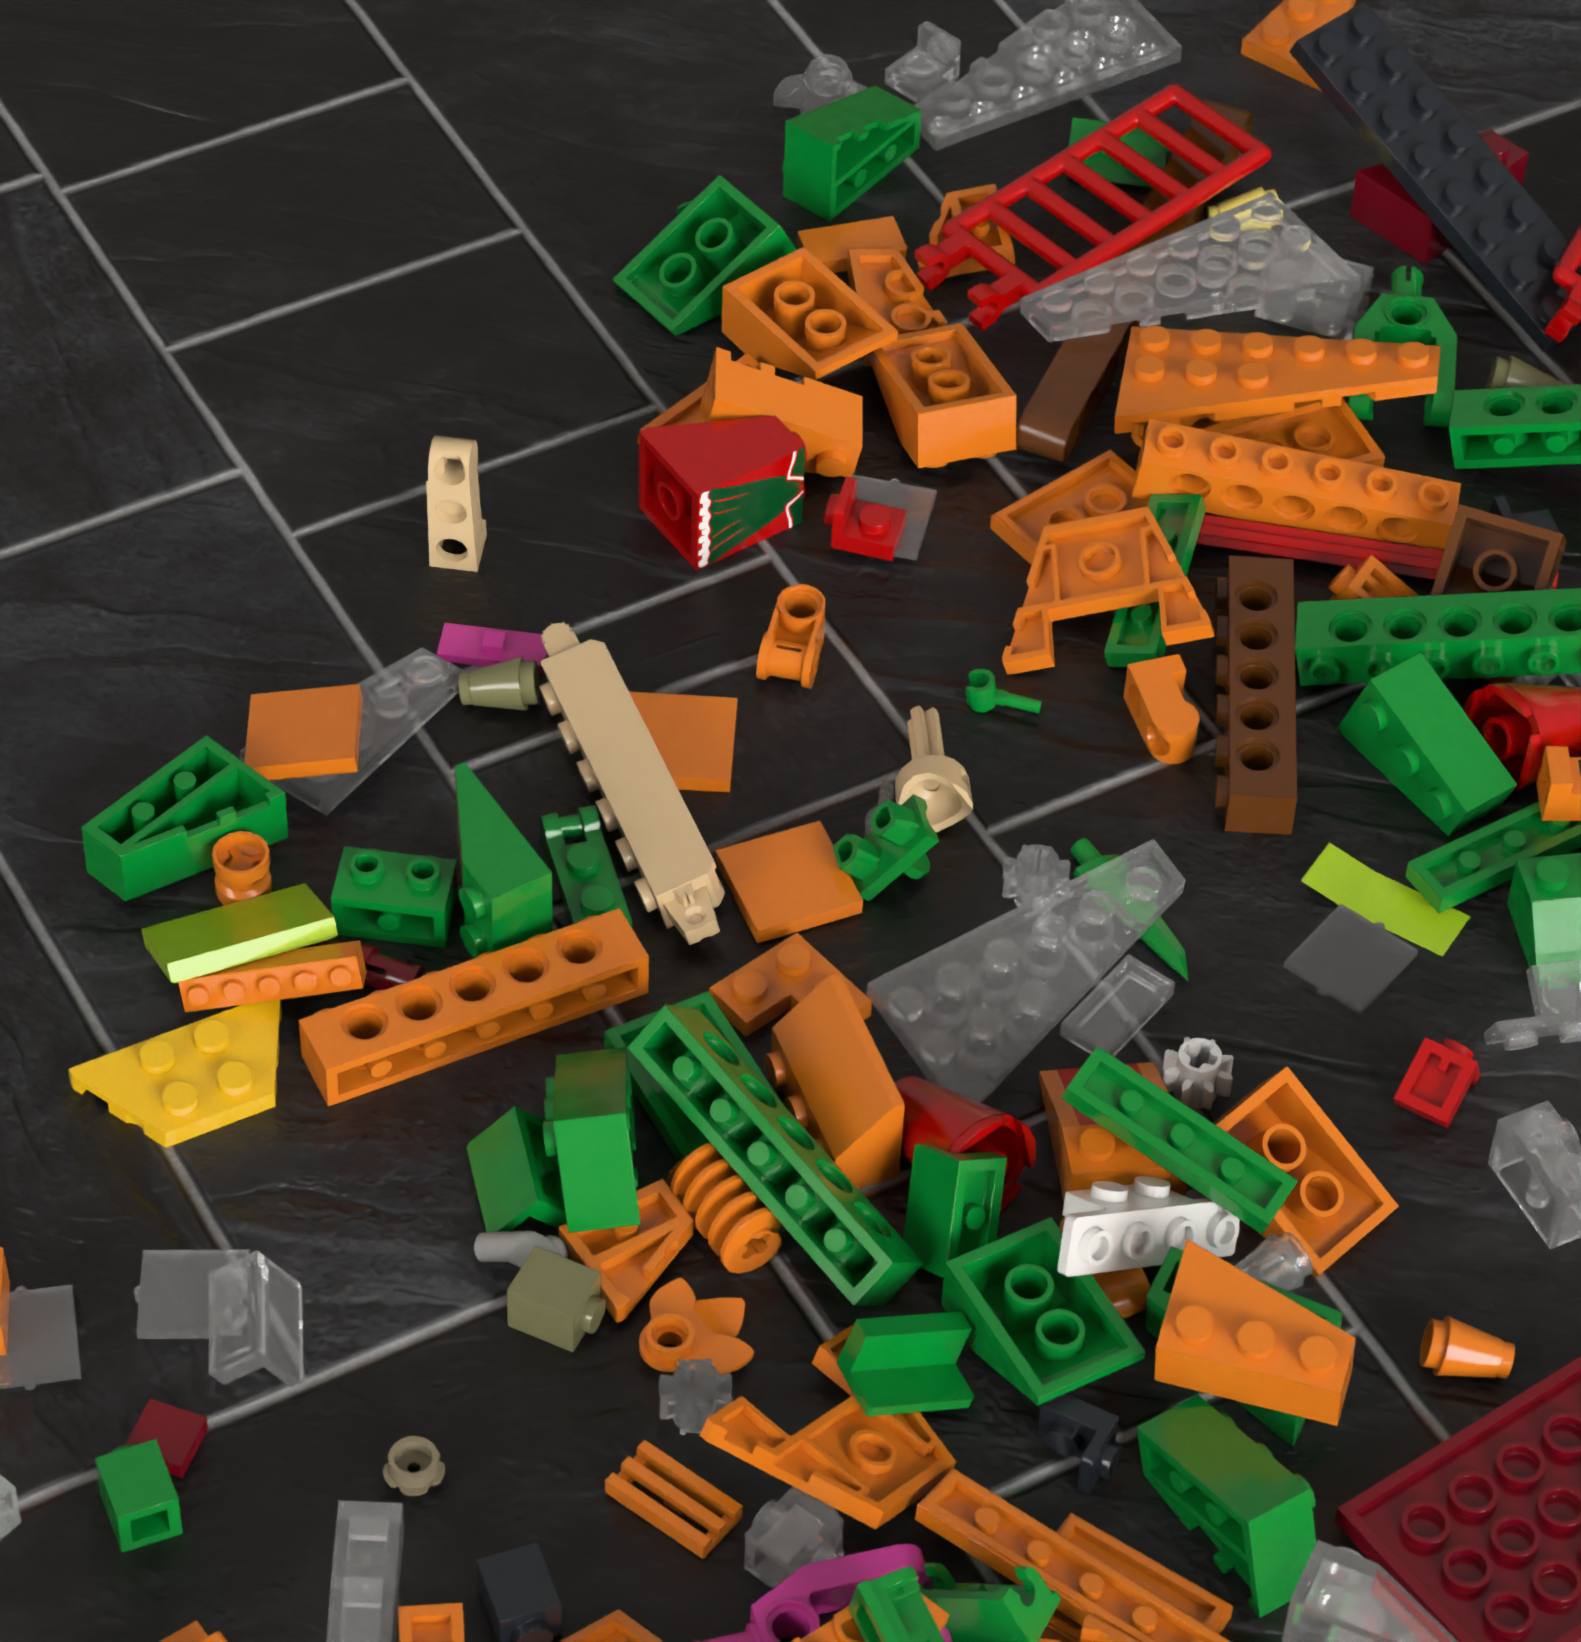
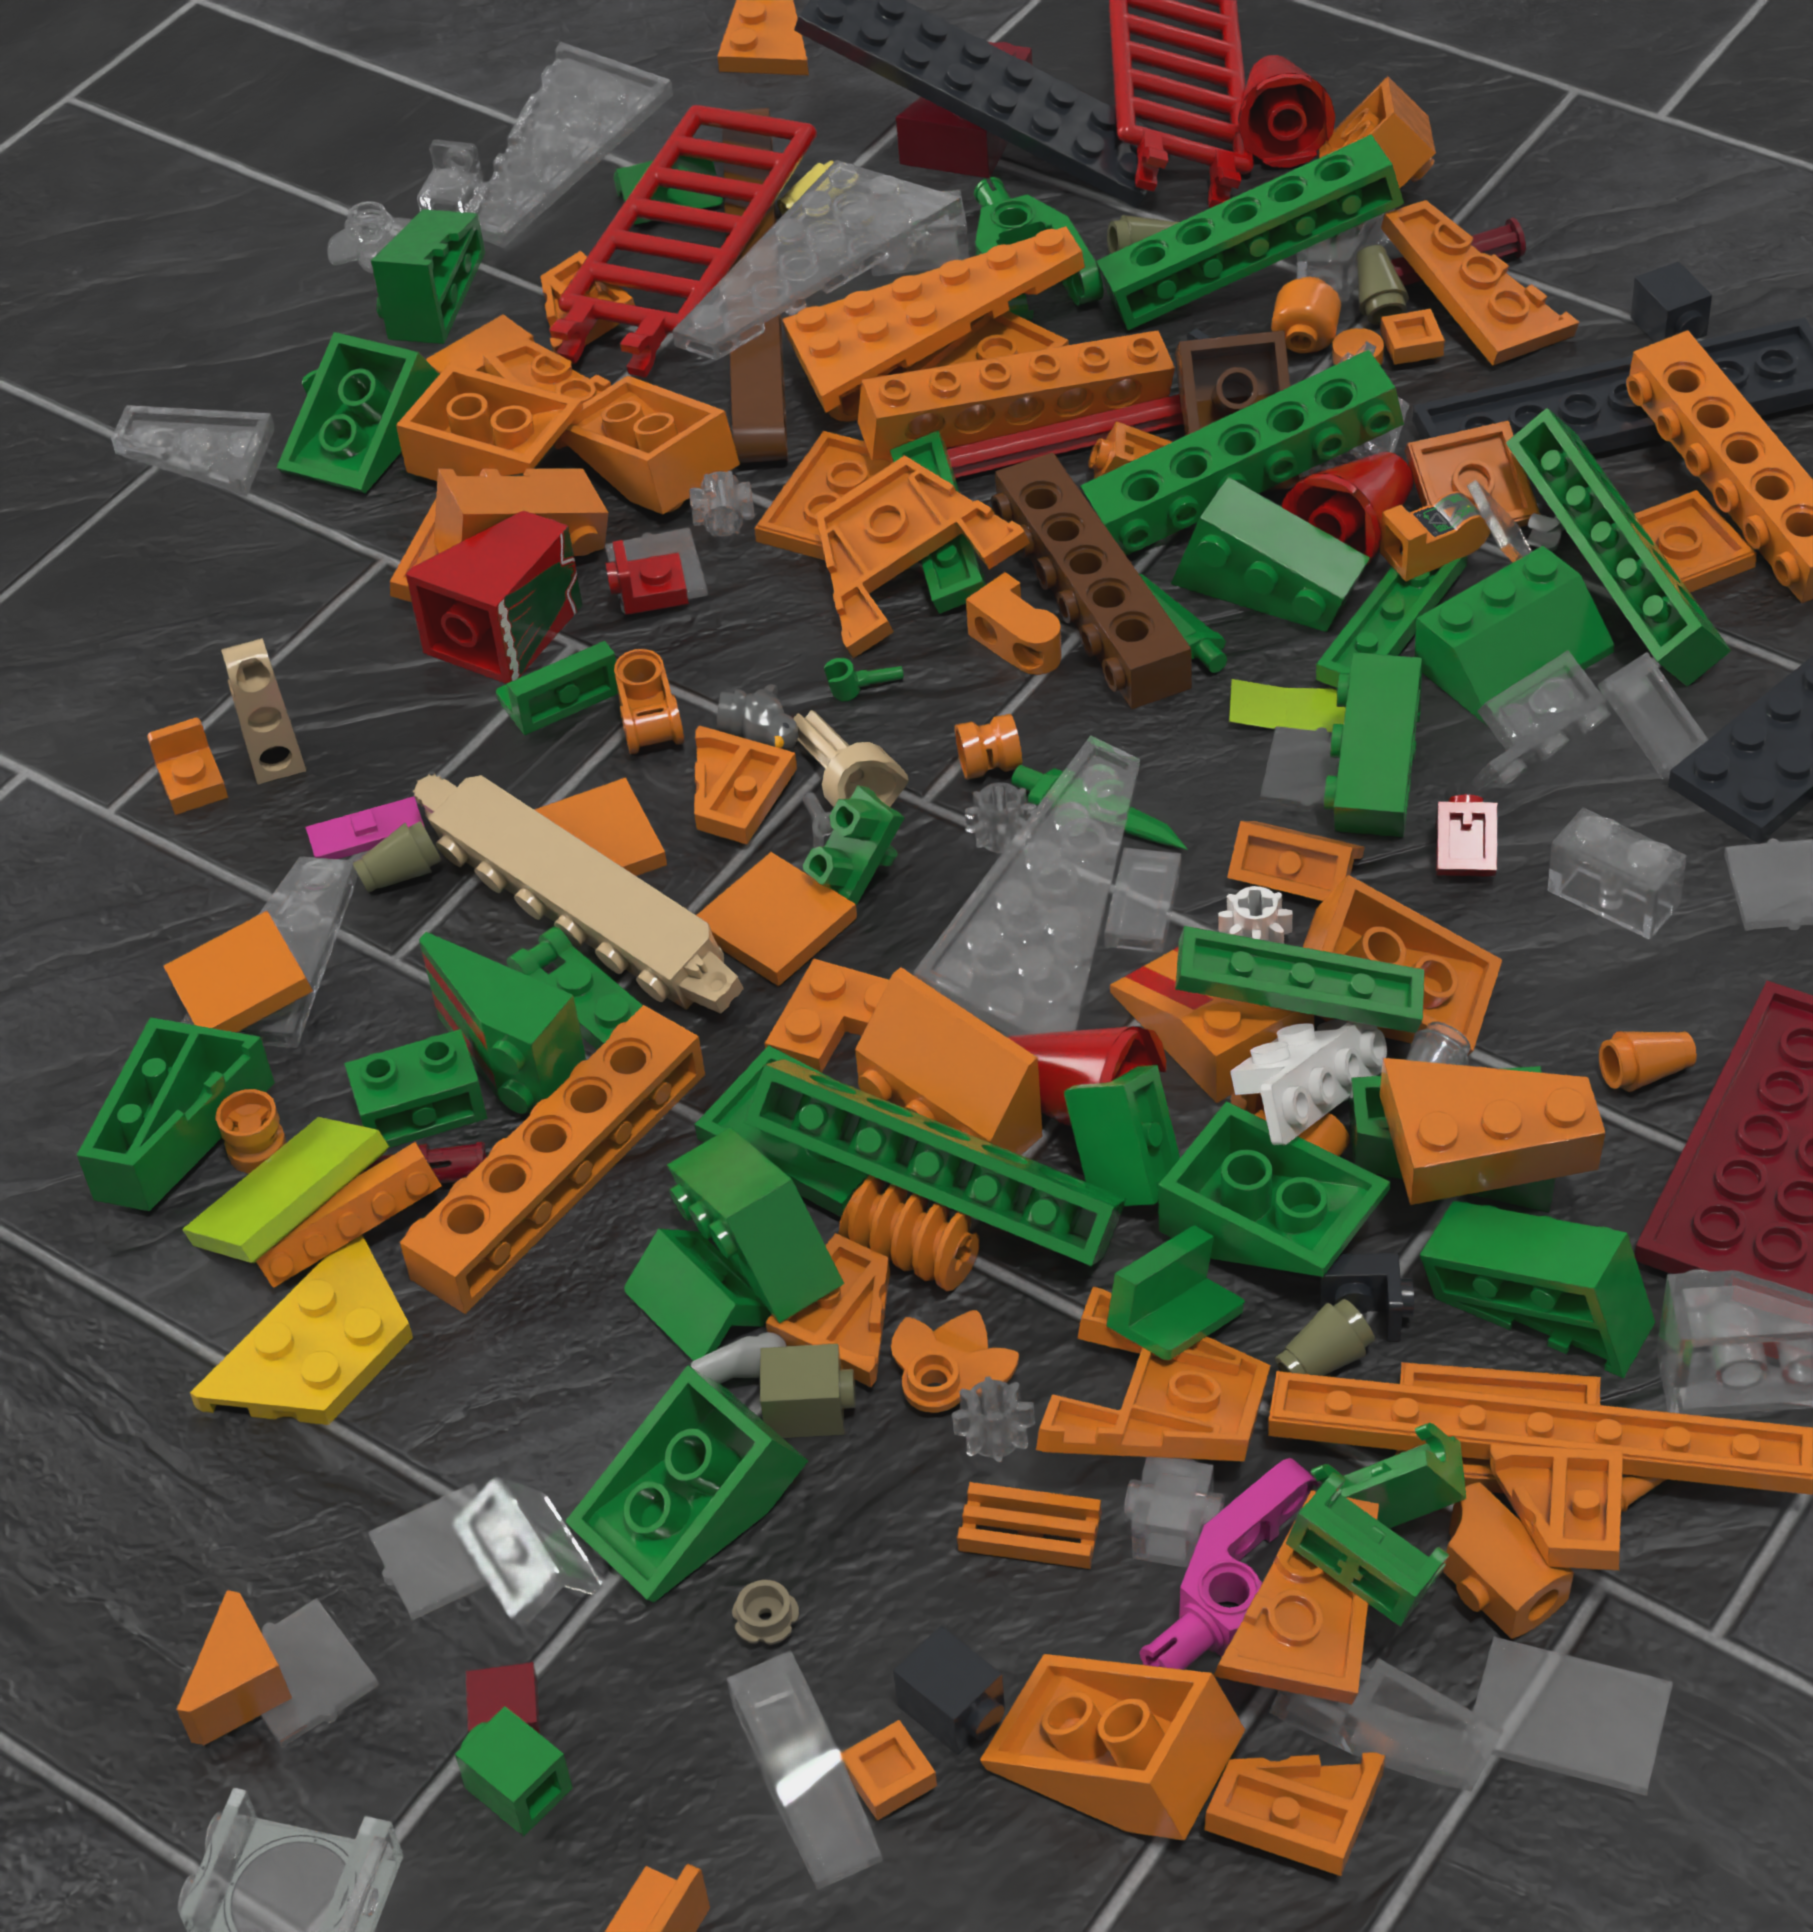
camera: 20 degrees left, 0 degrees up
(376, 524) = (186, 766): none -> orange bracket
(413, 1330) = (684, 1485): none -> green slope
(555, 228) = (197, 443): none -> clear wing
(729, 591) = (560, 688): none -> green panel
(829, 745) = (737, 783): none -> orange wing
(880, 693) = (757, 717): none -> dark grey animal
(973, 480) = (721, 503): none -> clear gear
(1015, 1466) = (1327, 1342): none -> olive cone
(1066, 809) = (988, 746): none -> orange wheel
(1270, 1029) = (1291, 860): none -> orange panel
(1316, 774) = (1204, 642): none -> green bar
(1407, 960) = (1375, 744): none -> green wedge

